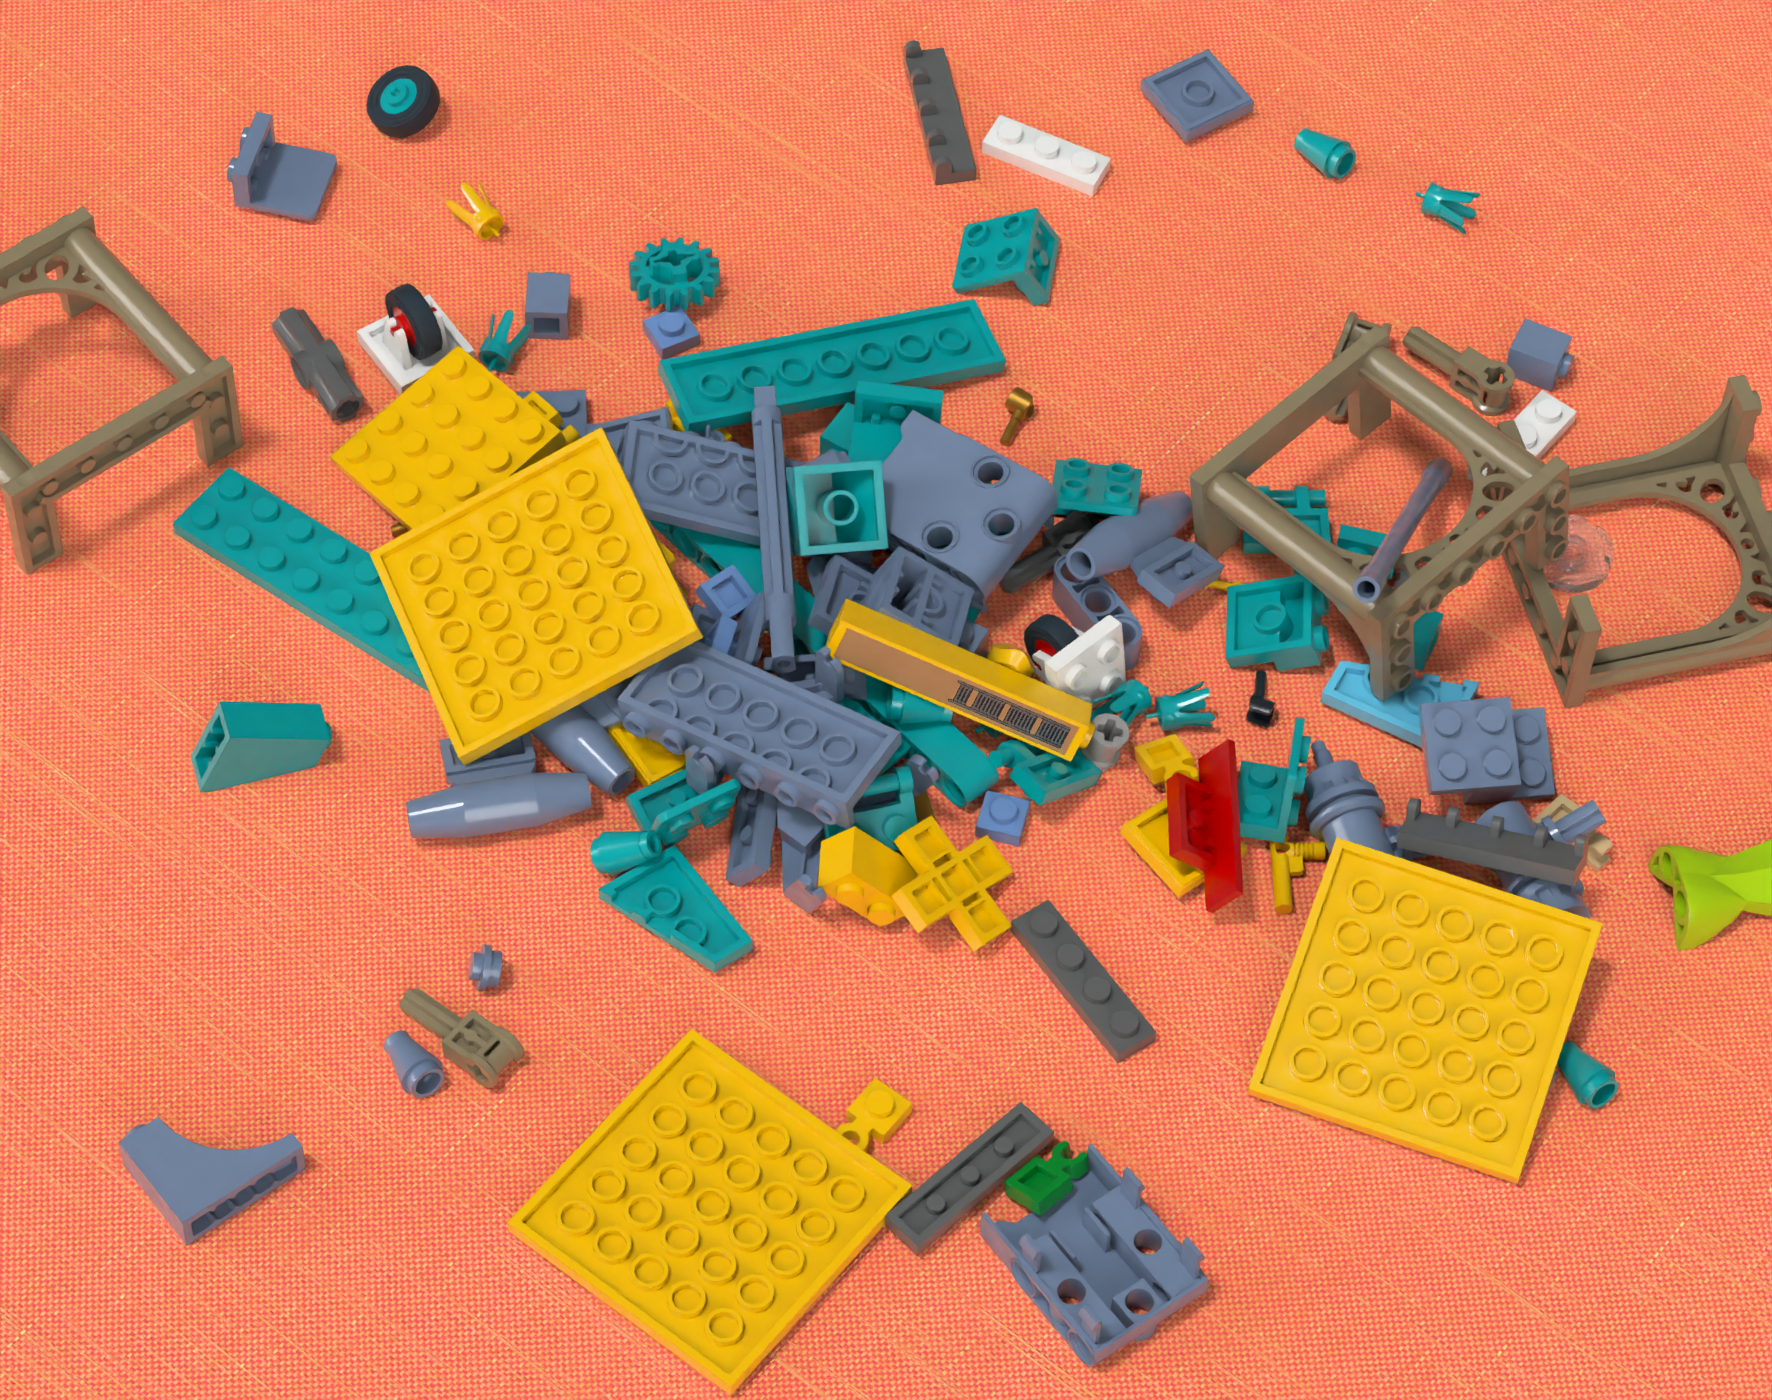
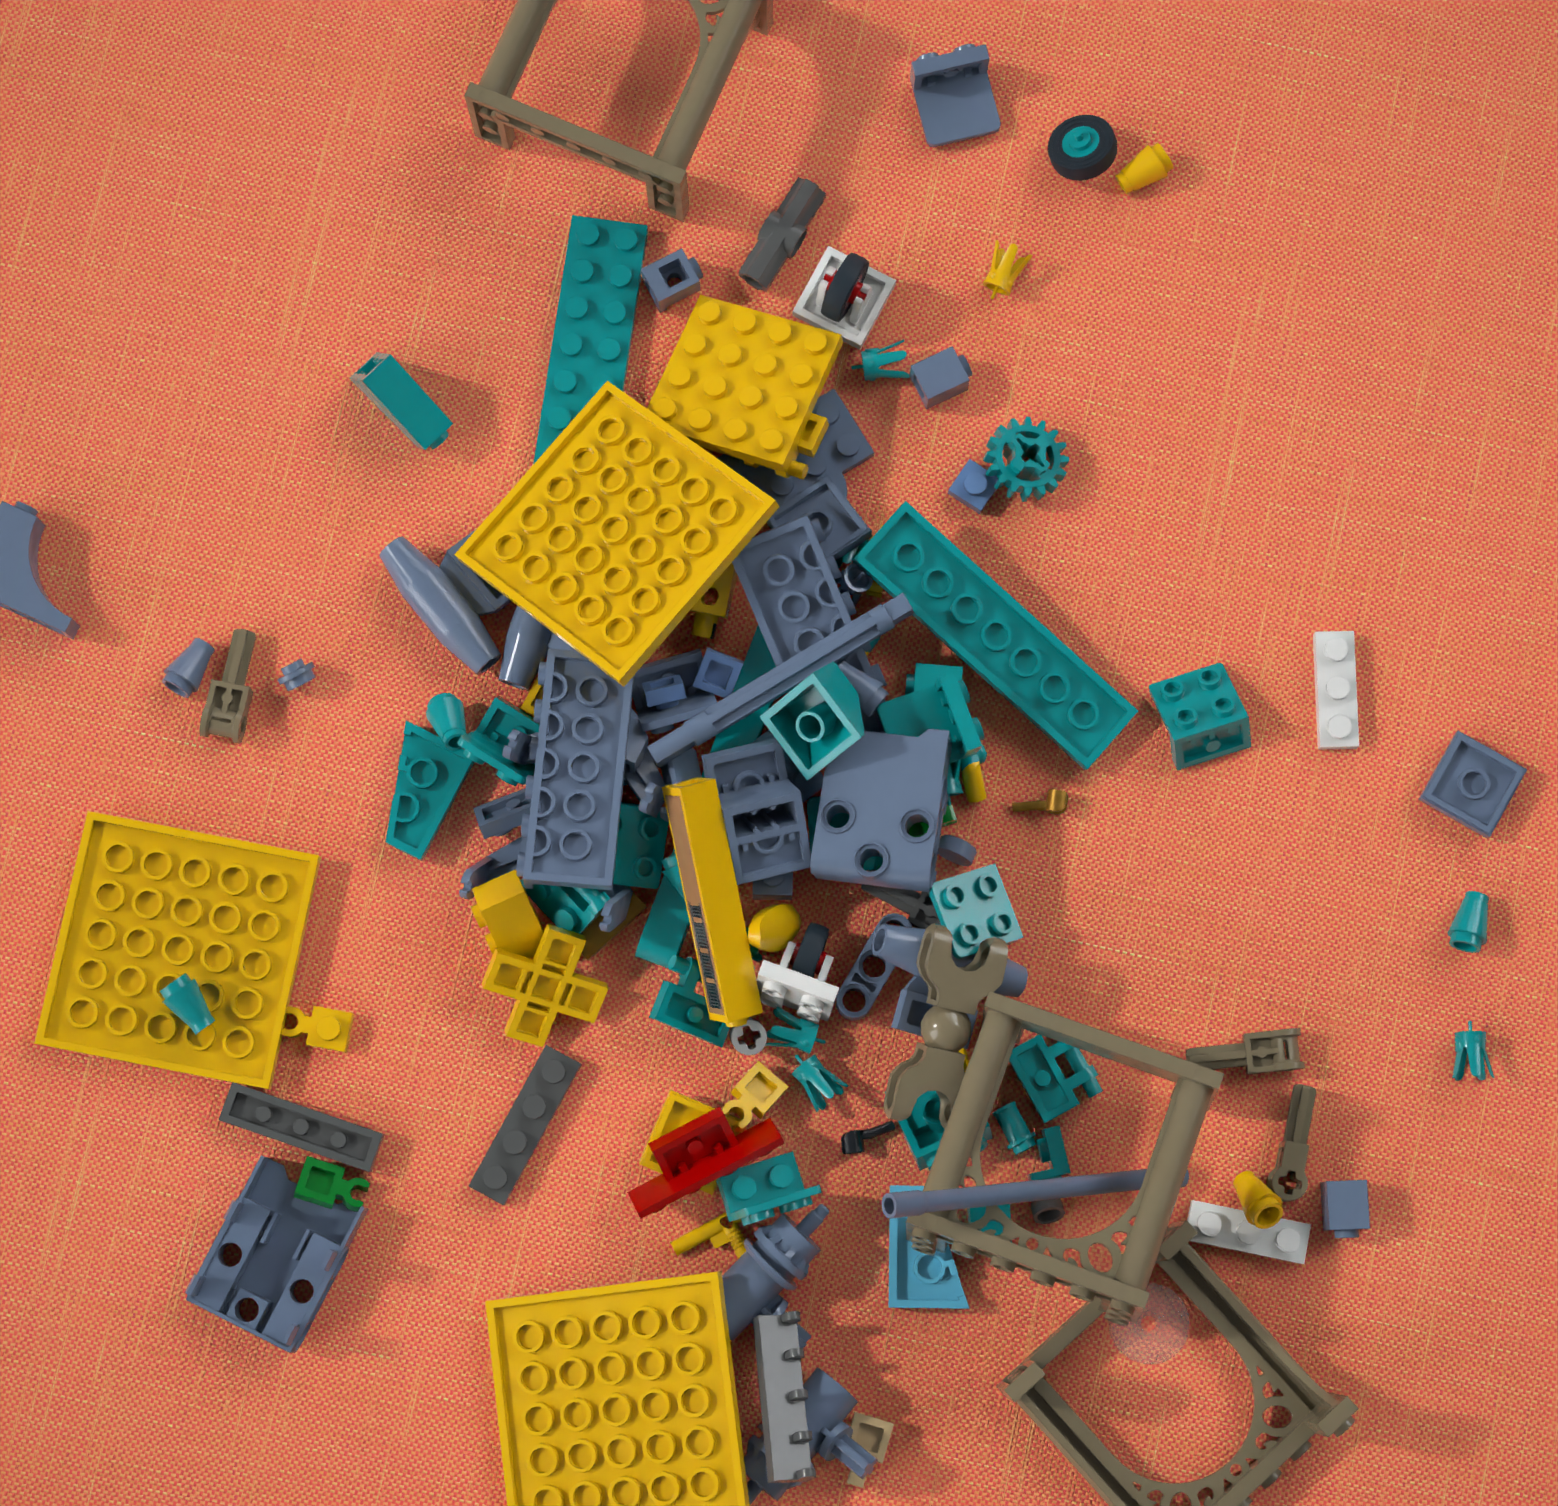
camera: 65 degrees right, 25 degrees up
(299, 470) = (671, 266): none -> sand blue brick
(456, 68) = (1145, 168): none -> yellow cone
(778, 1207) = (187, 1002): none -> teal cone
(938, 114) = (1328, 580): dark grey hinge -> none
(1002, 818) = (640, 988): medium blue plate -> none
(1233, 574) = (946, 1025): none -> dark tan piece
(1486, 751) = (890, 1348): sand blue bracket -> none
(1504, 406) = (1258, 1201): none -> yellow cone

